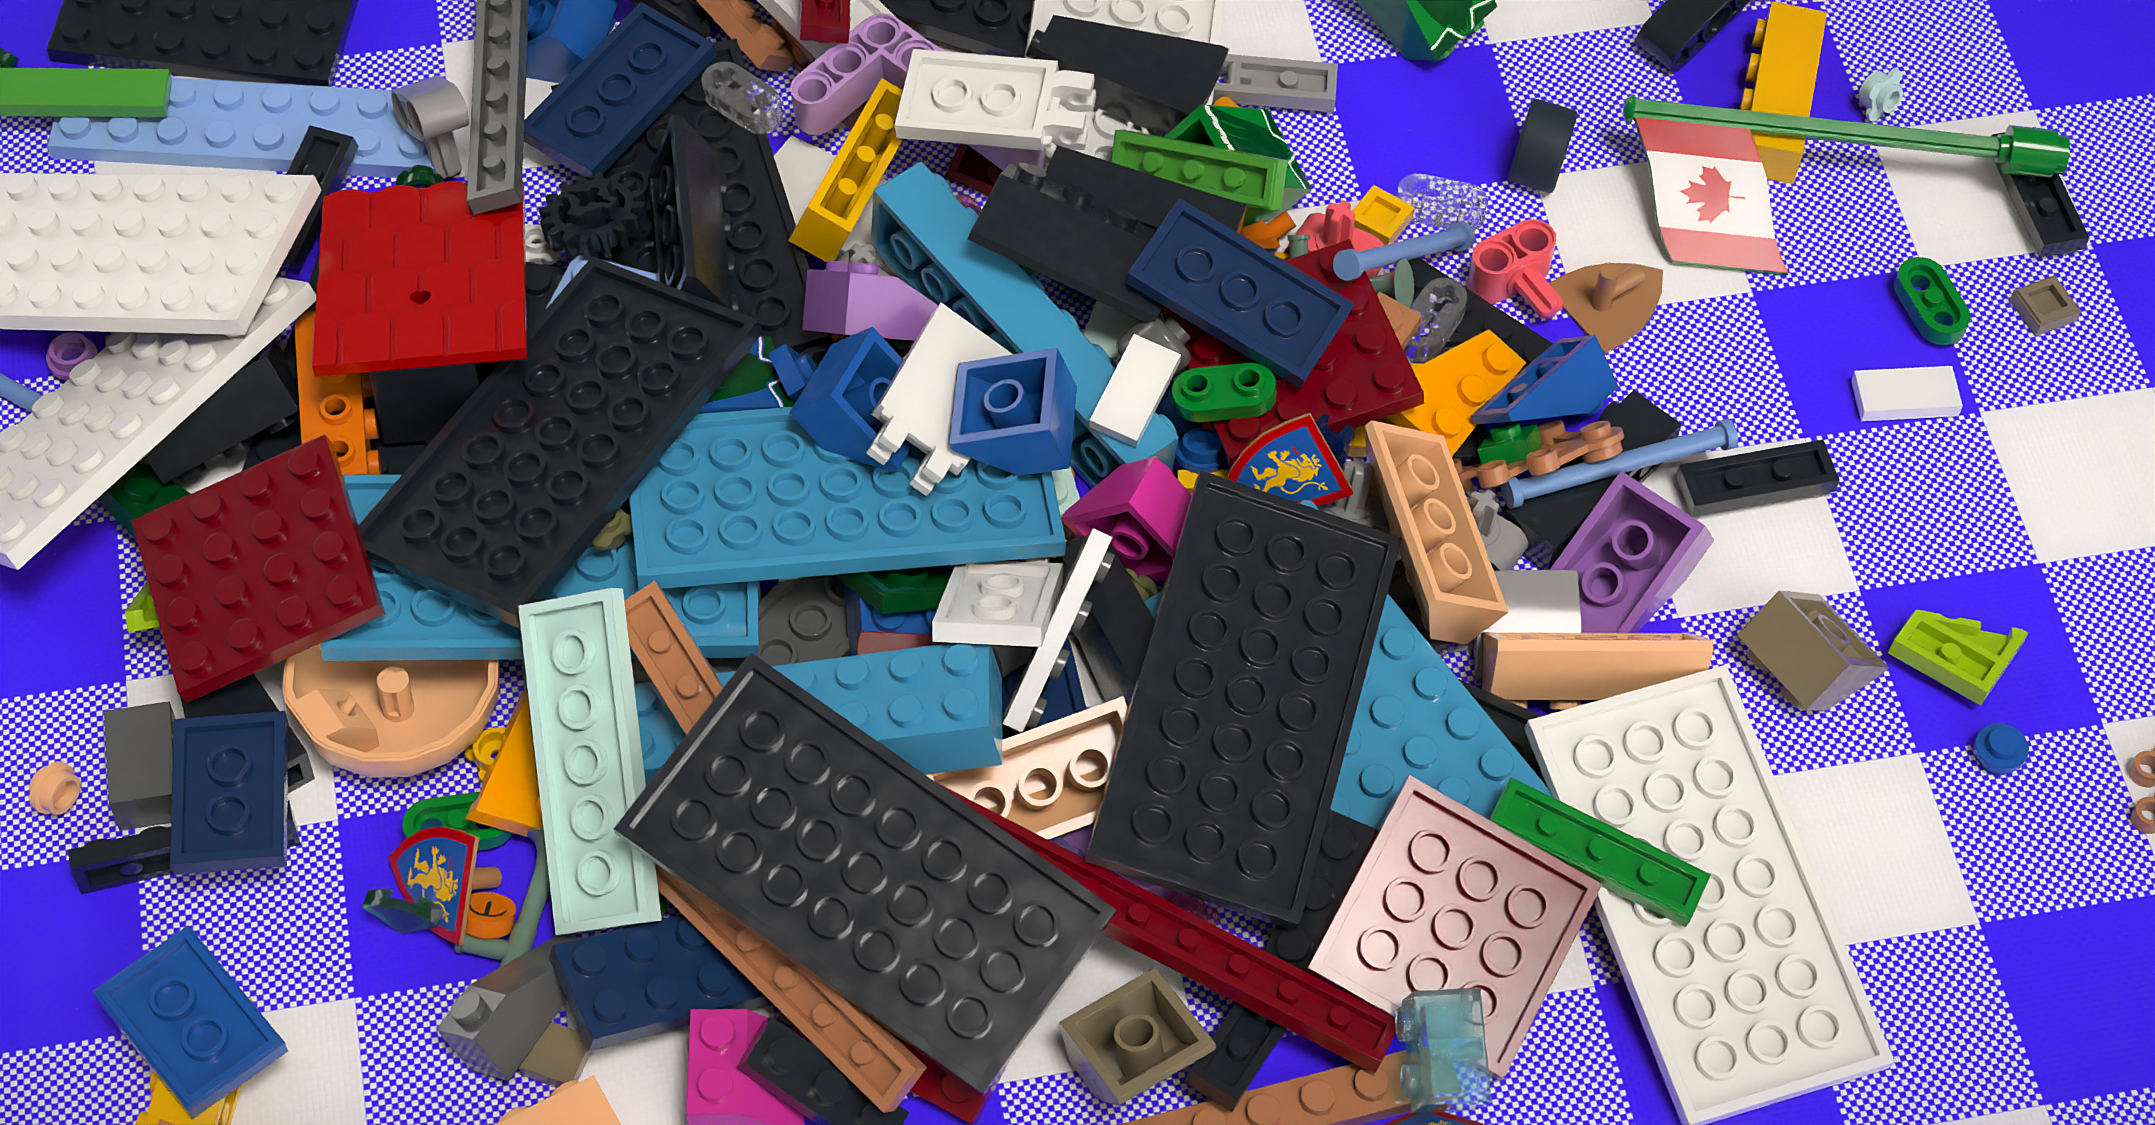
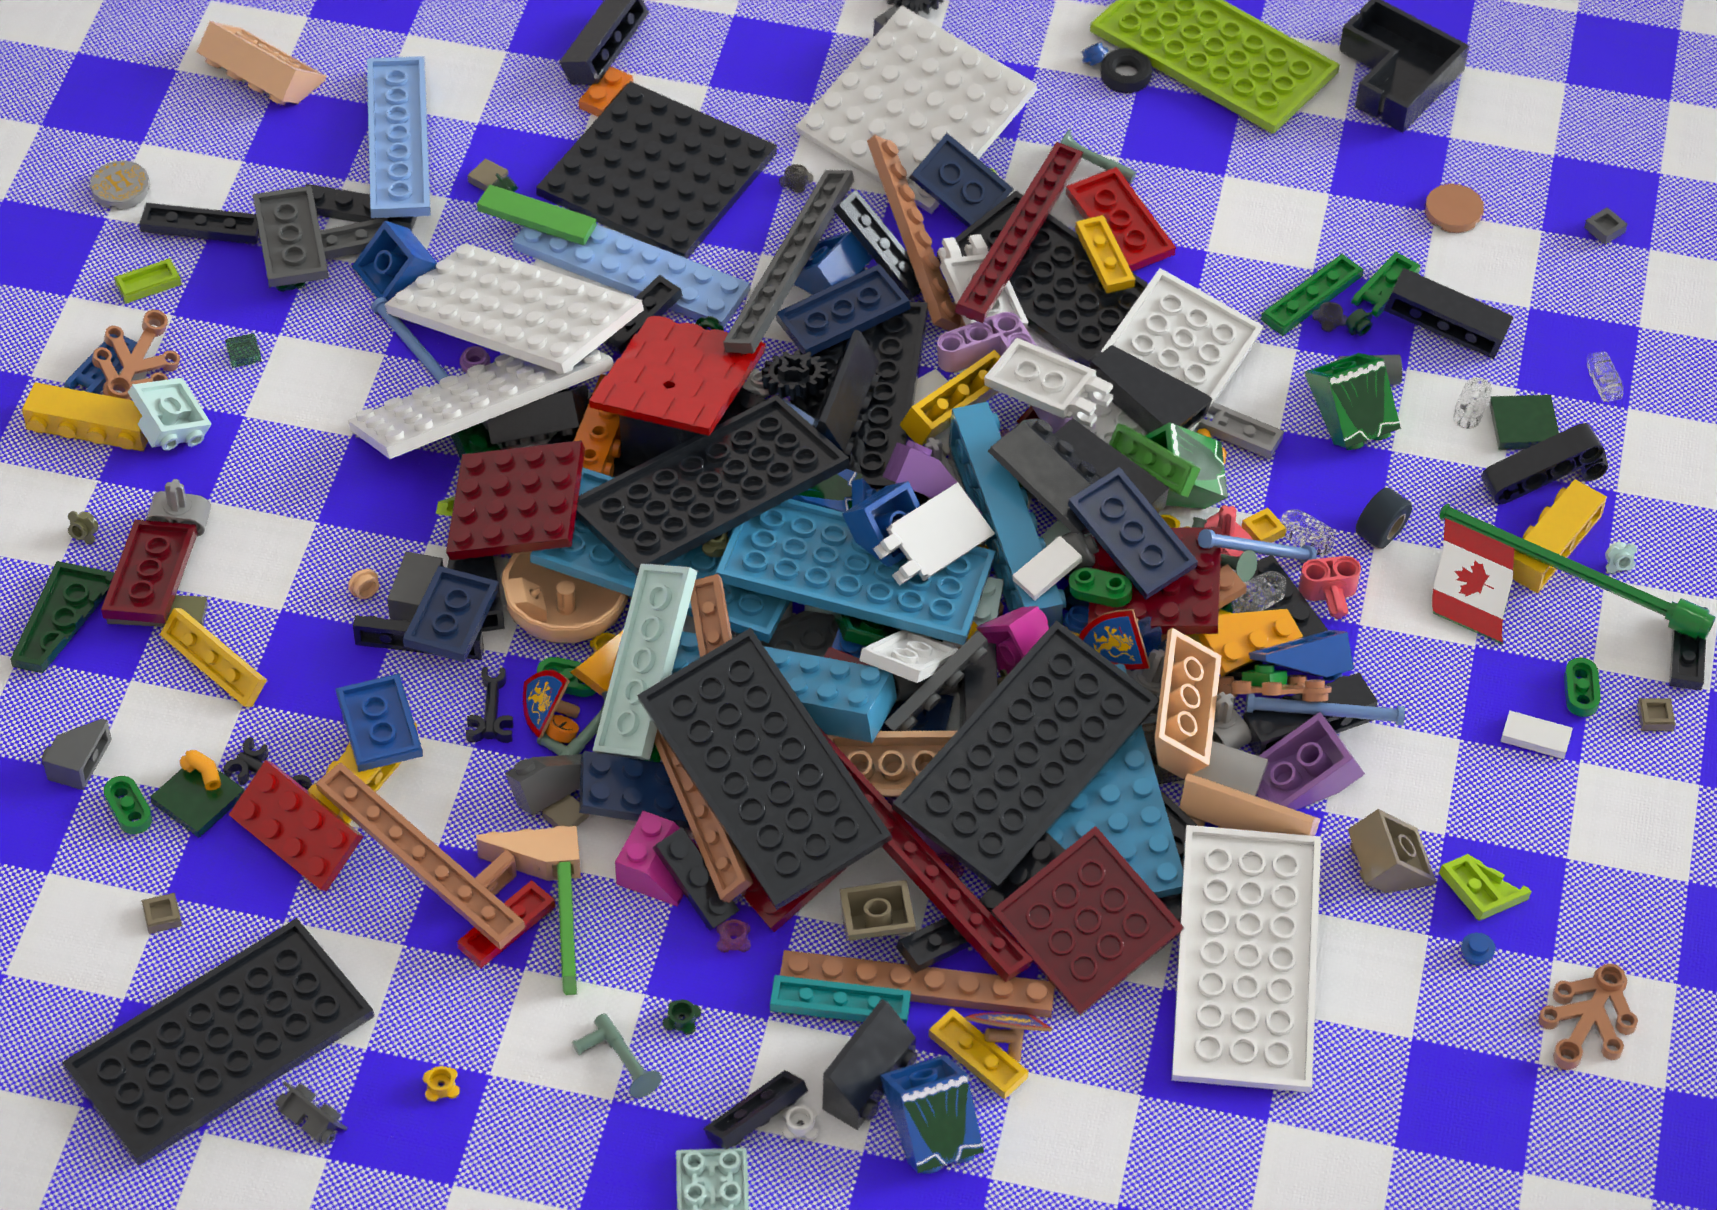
camera: 25 degrees right, 5 degrees down
(366, 953) = (491, 725): none -> black bar
(401, 914) = (520, 714): tile -> none
(430, 114) = (729, 289): light grey beam -> none
(737, 103) = (917, 334): clear beam -> none
(1015, 412) = (970, 556): blue slope -> none
(1267, 234) = (1186, 513): orange bar -> none
(1444, 1050) = (1047, 981): clear light blue brick -> none
(1602, 852) = (1192, 910): green tile -> none
(1610, 300) = (1382, 621): medium nougat shield -> none
(1757, 478) = (1413, 749): black plate -> none

